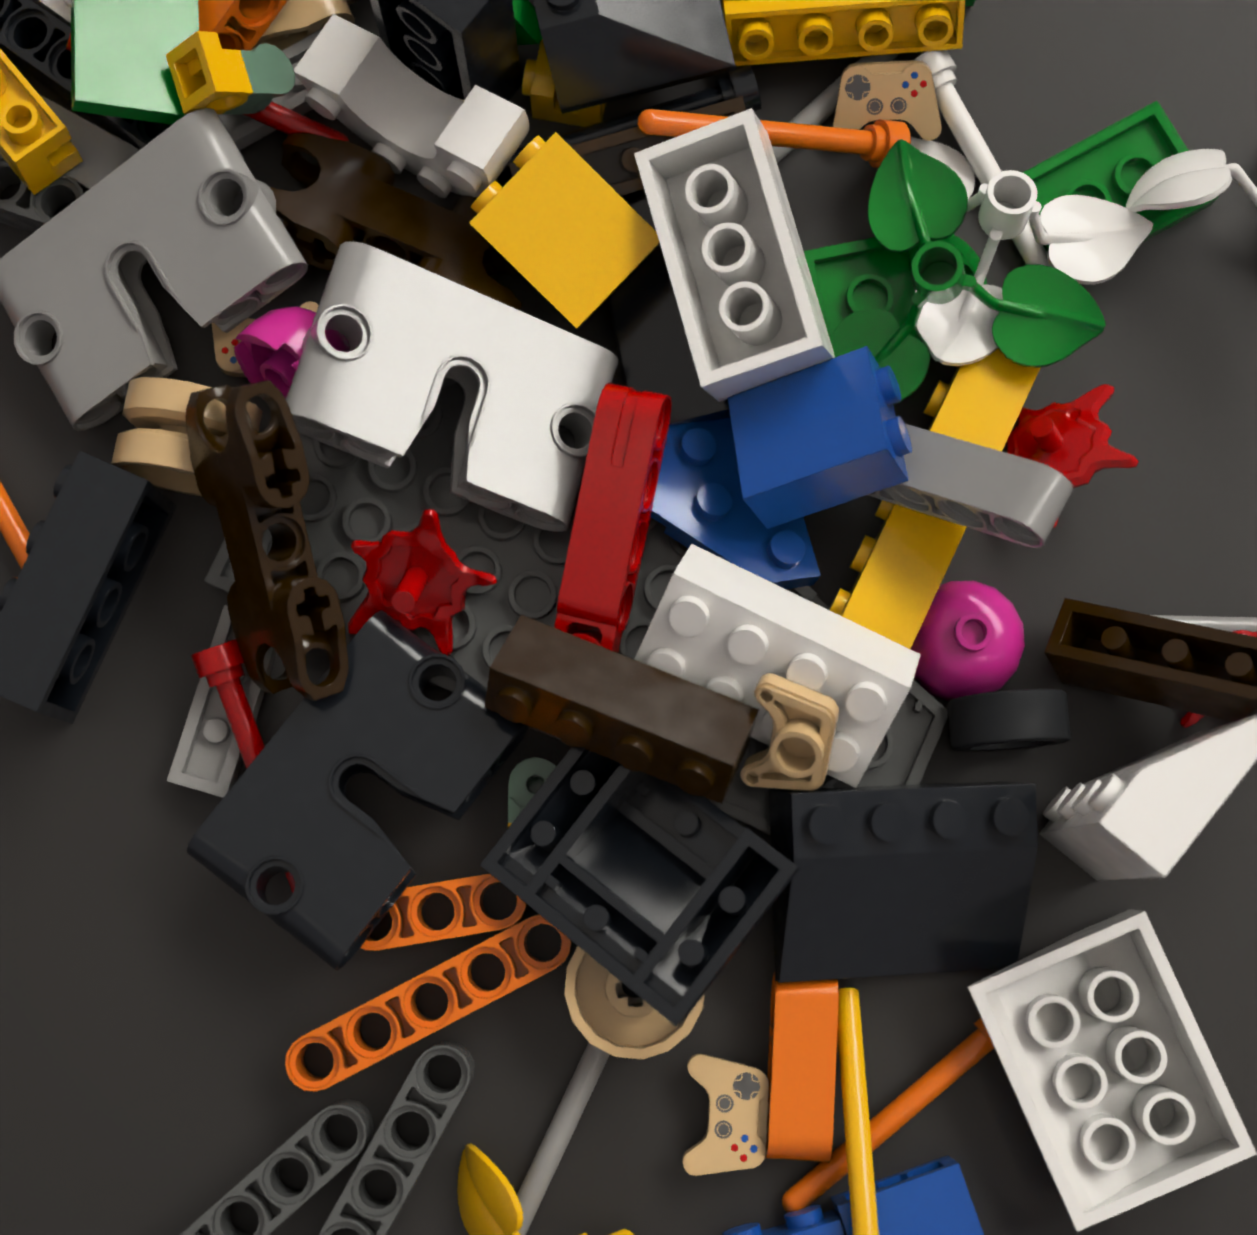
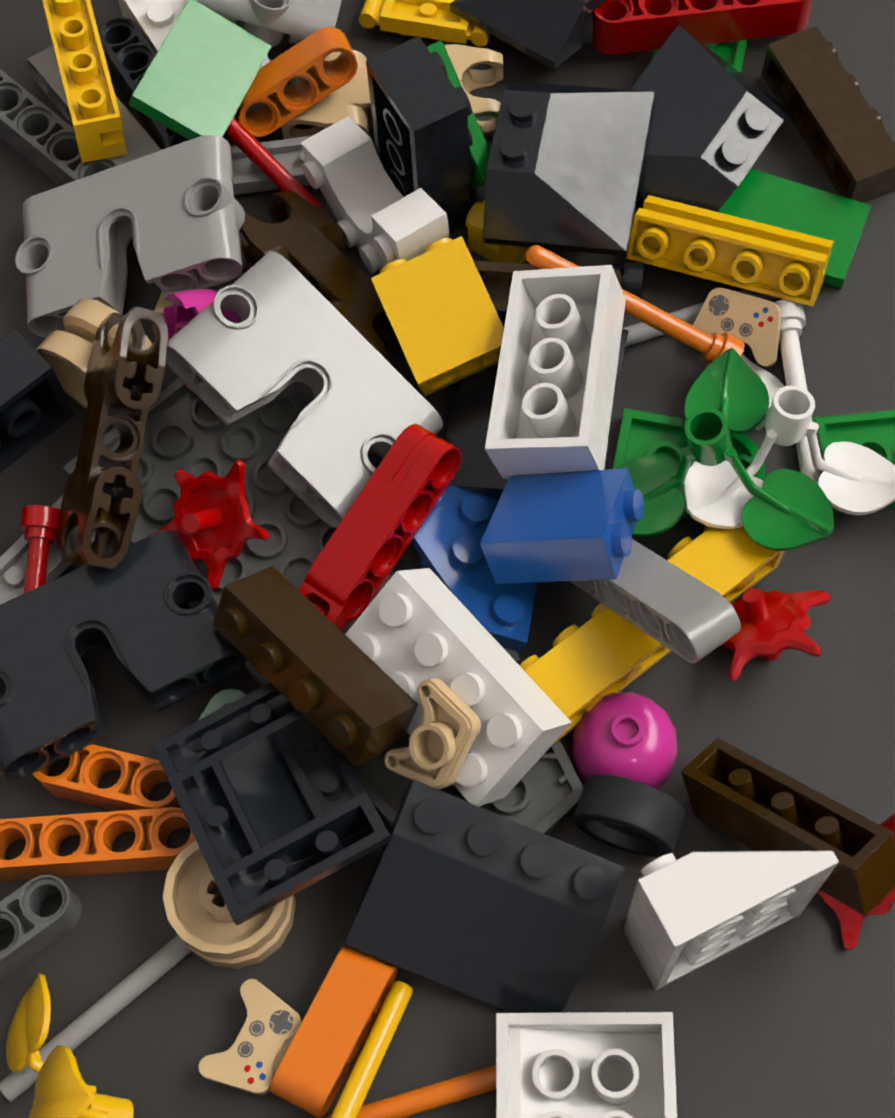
camera: 30 degrees right, 15 degrees down
(228, 78) = (251, 127): yellow leg -> none

